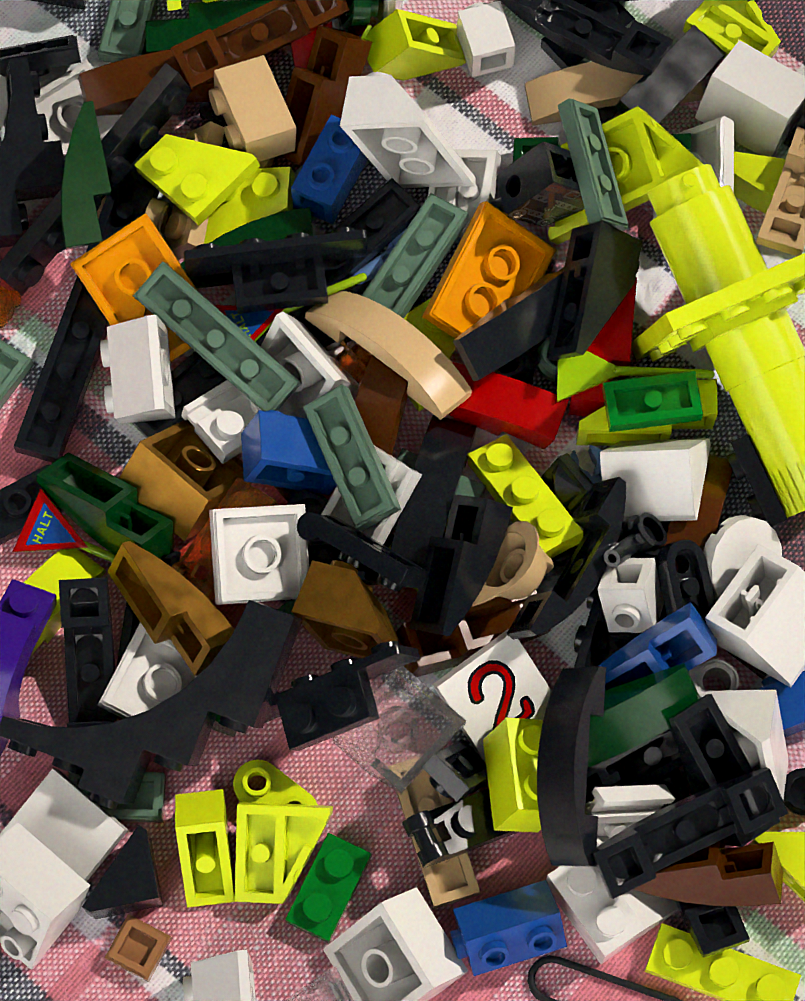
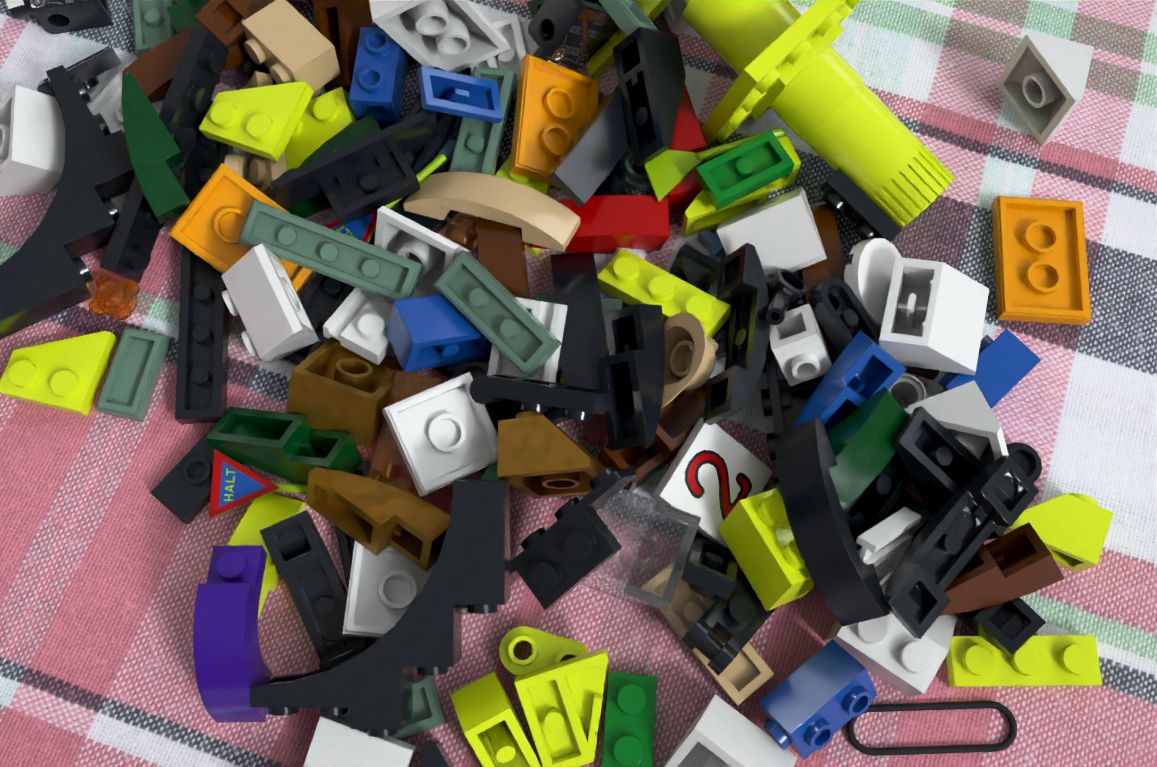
camera: 20 degrees left, 0 degrees up
(400, 224) = (459, 94): none -> blue slope

